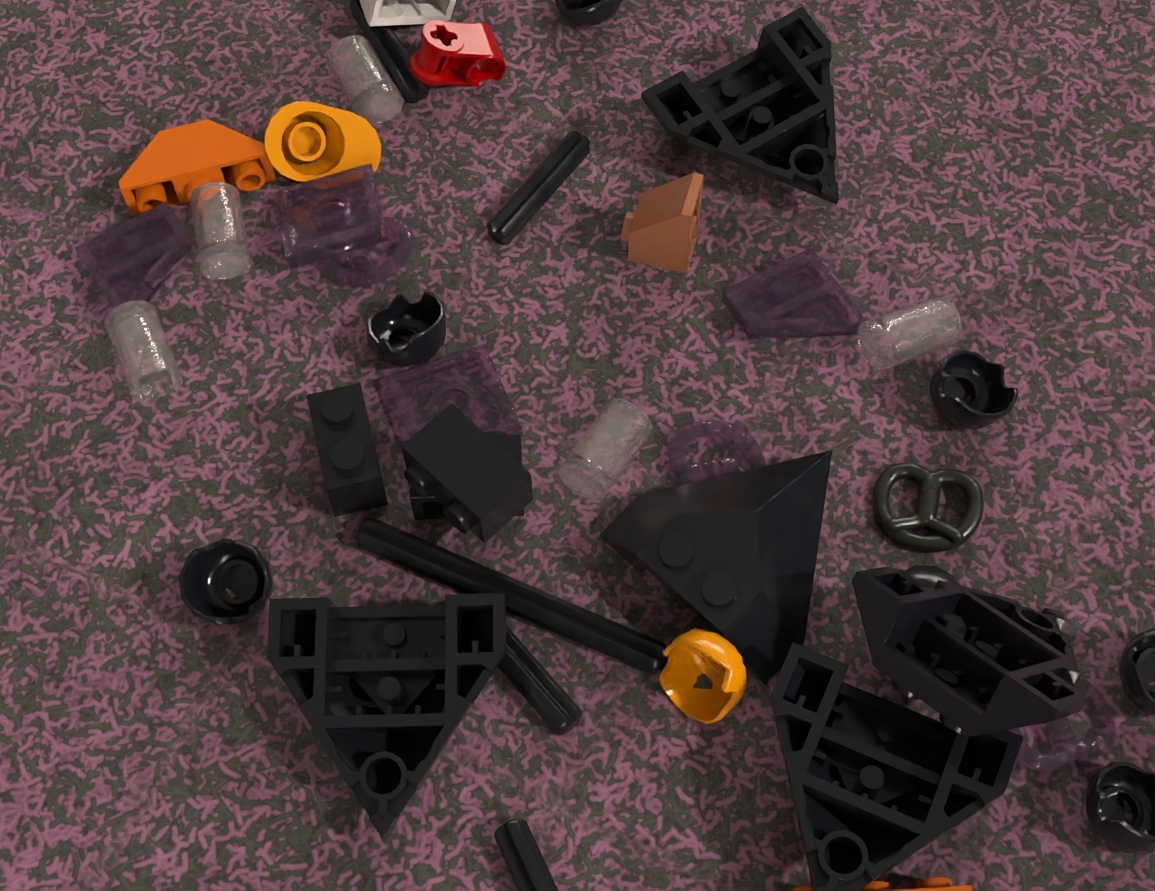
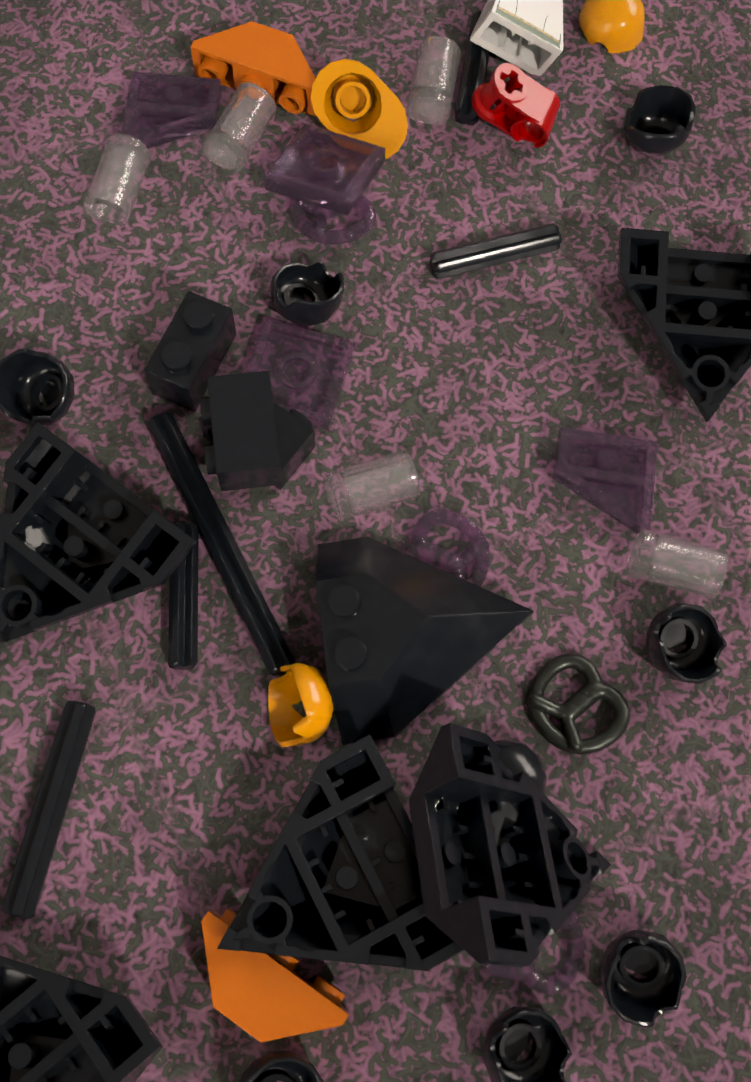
camera: 30 degrees right, 10 degrees up
(665, 224) = (559, 346): nougat slope -> none

